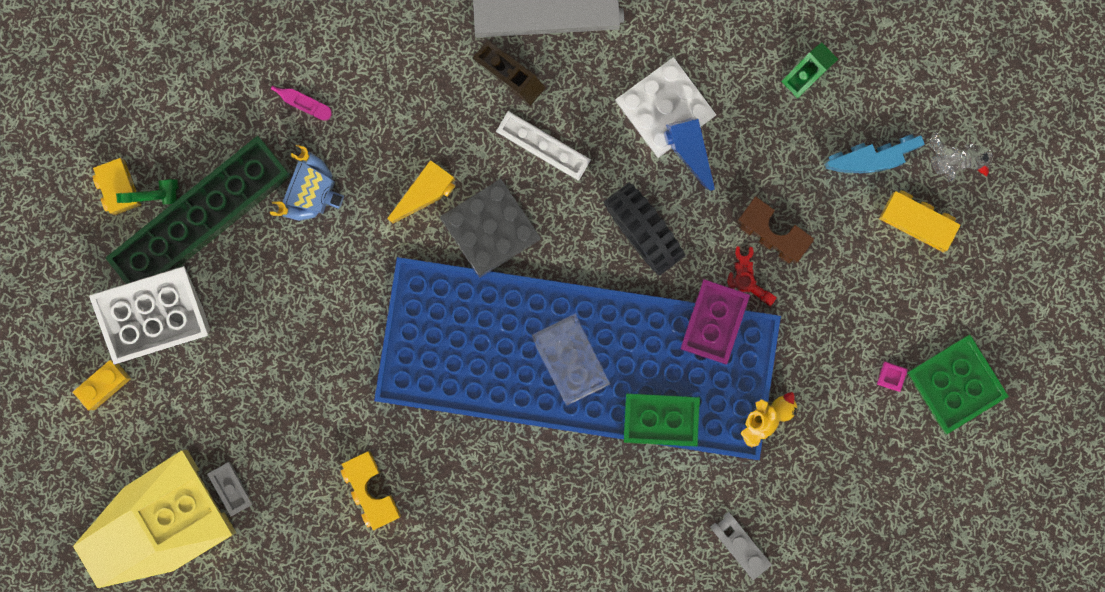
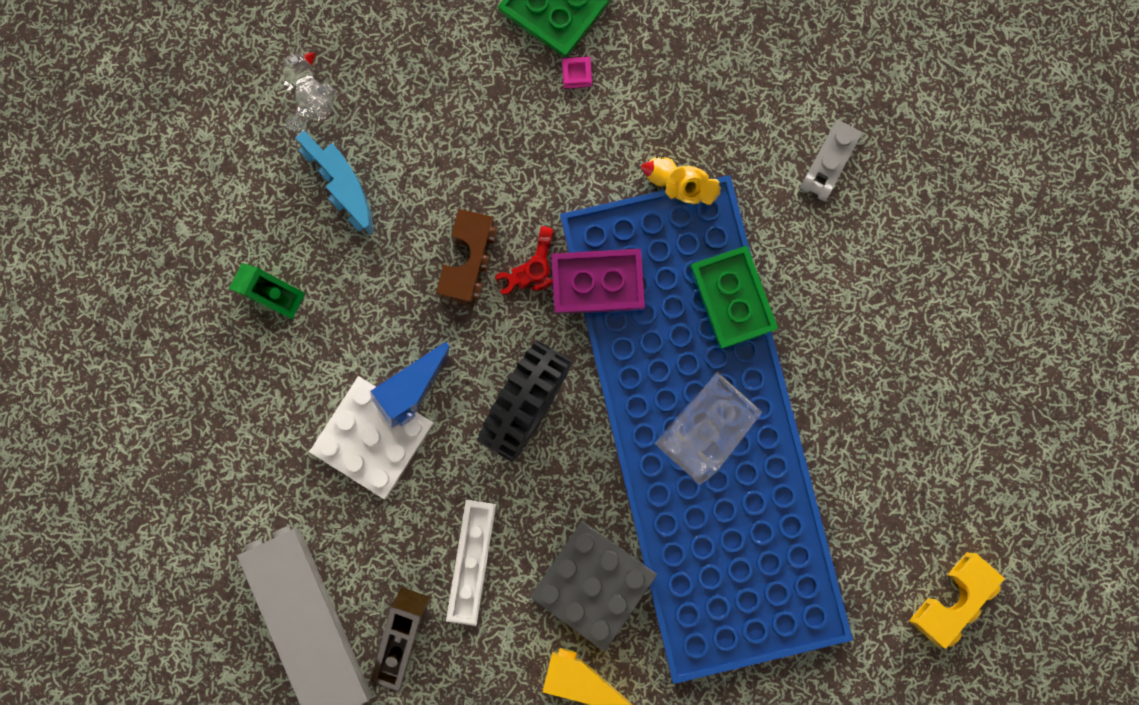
camera: 115 degrees left, 5 degrees down
(920, 220) = (392, 105): yellow brick -> none

